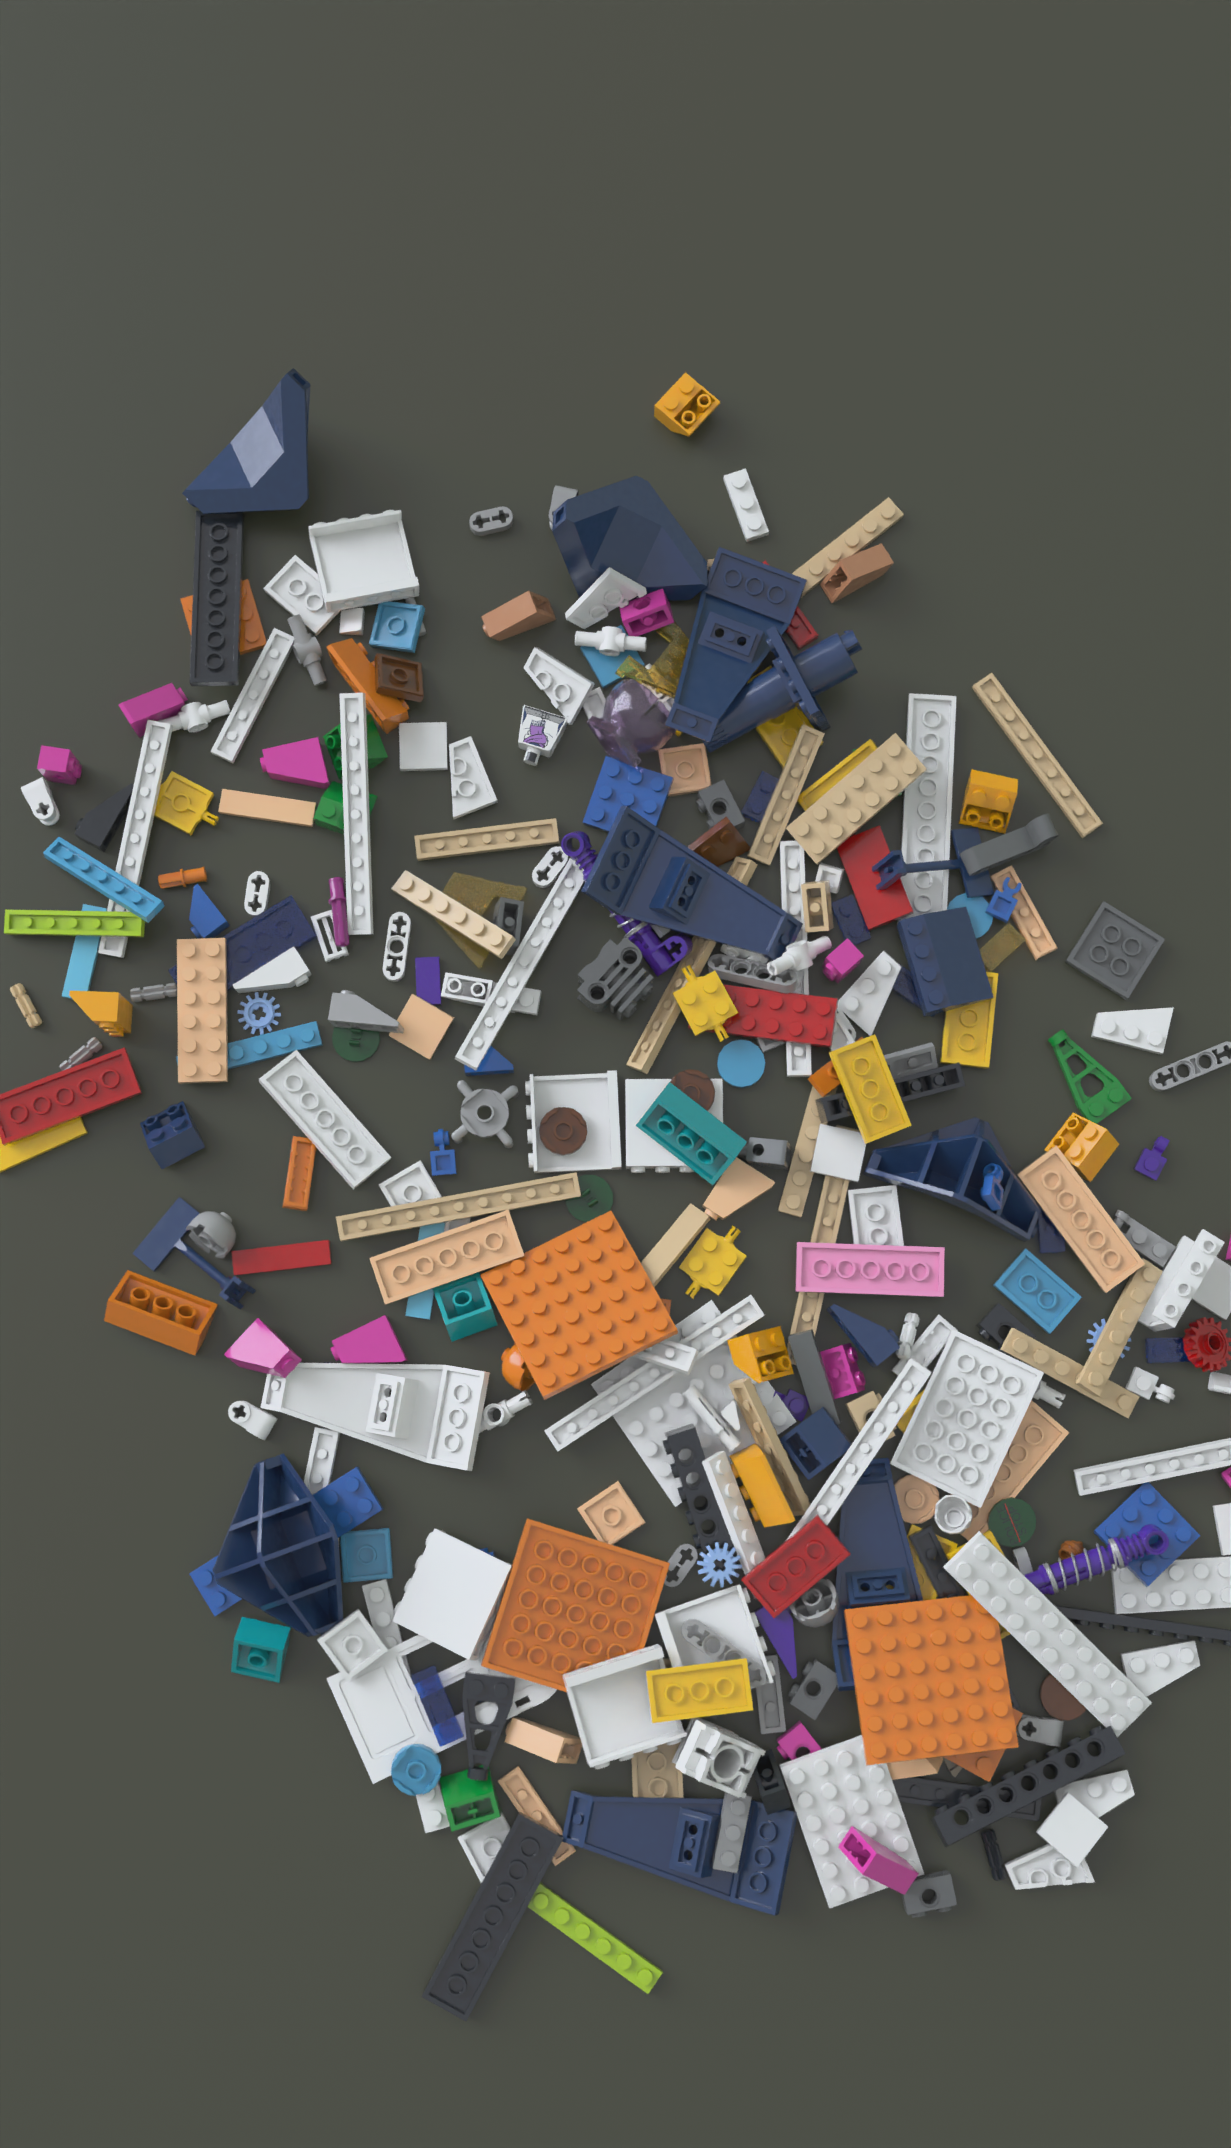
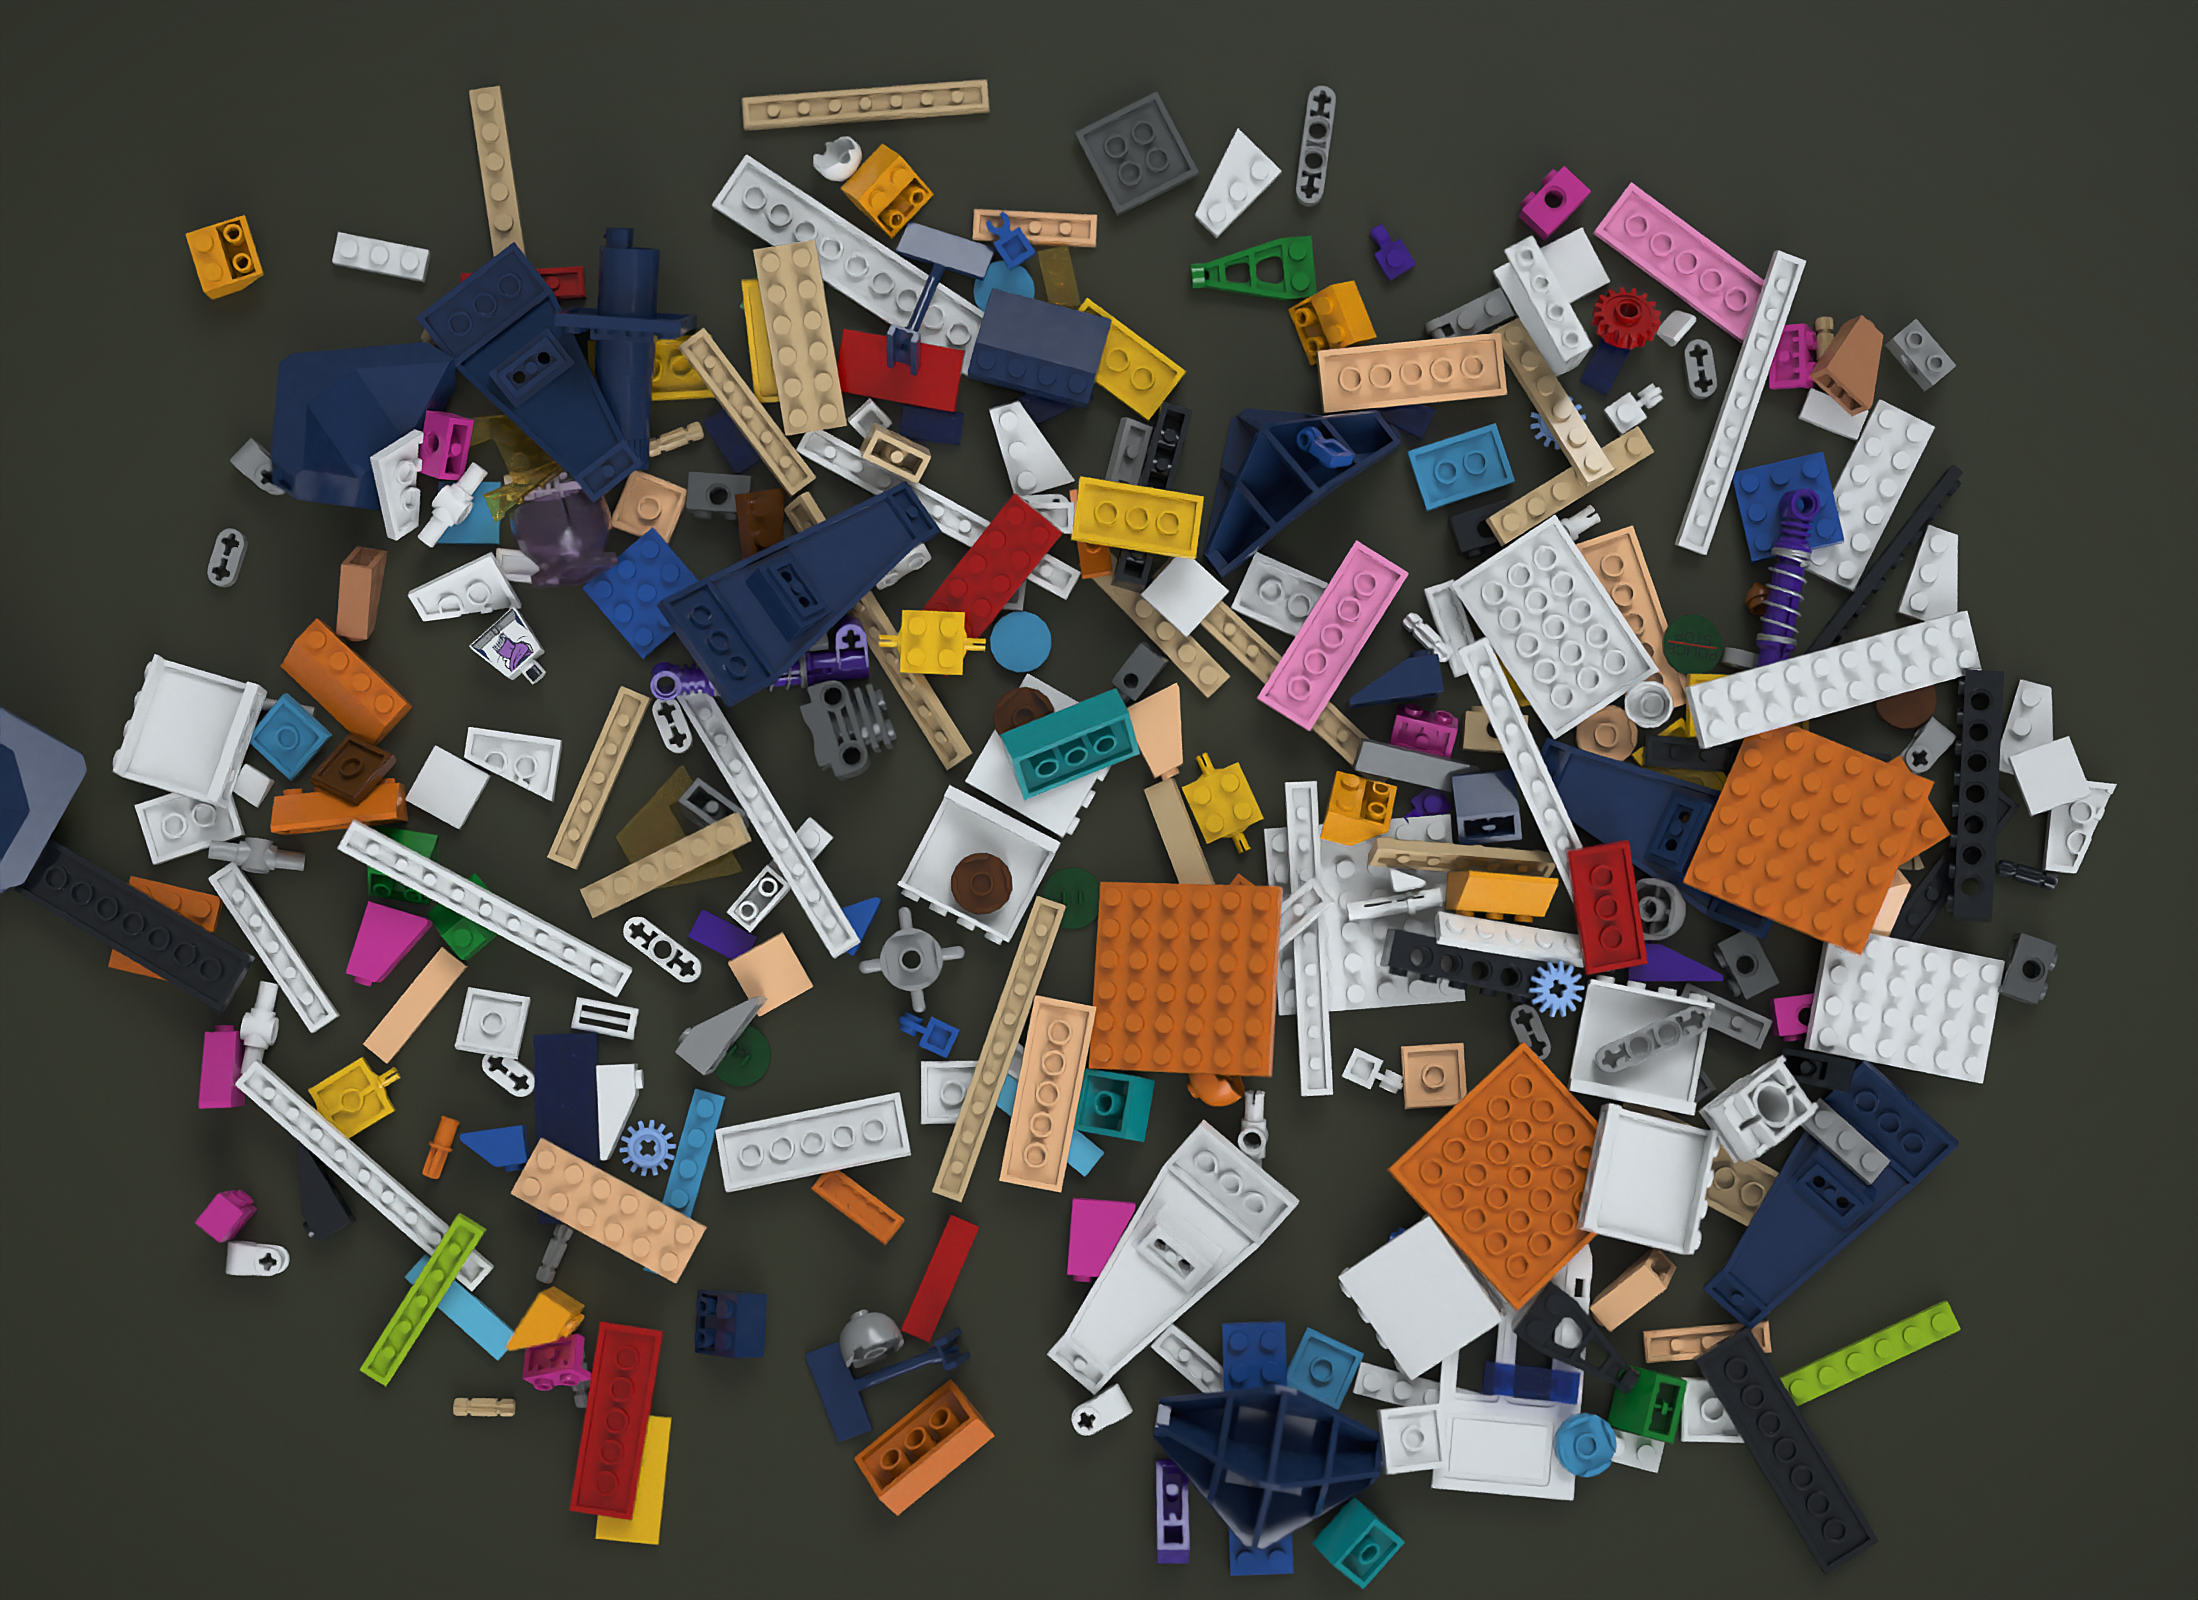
camera: 60 degrees left, 5 degrees up
(80, 1034) = (555, 1363): none -> dark pink bracket
(103, 879) = (392, 1238): dark azure plate -> none
(208, 1508) = (1171, 1513): none -> dark purple slope
(263, 1351) = (1035, 1356): slope -> none
(284, 864) = (492, 1023): none -> white tile
(339, 915) = (585, 992): magenta axle -> none
(453, 641) = (345, 683): none -> orange slope
(588, 1464) = (1365, 1068): none -> white plate
(699, 1690) = (1678, 1089): yellow plate -> none
(730, 964) = (925, 565): light grey beam -> none
(740, 759) = (675, 438): none -> tan axle
(799, 955) = (940, 506): white pin -> none
(842, 961) = (974, 463): dark pink brick -> none
(856, 572) = (536, 180): nougat slope -> none
(877, 1861) = (1964, 1003): dark pink slope -> none
(989, 758) = (840, 159): none -> white hair
(1010, 846) = (952, 198): dark grey beam -> none
(1208, 1421) = (1692, 370): none -> light grey beam

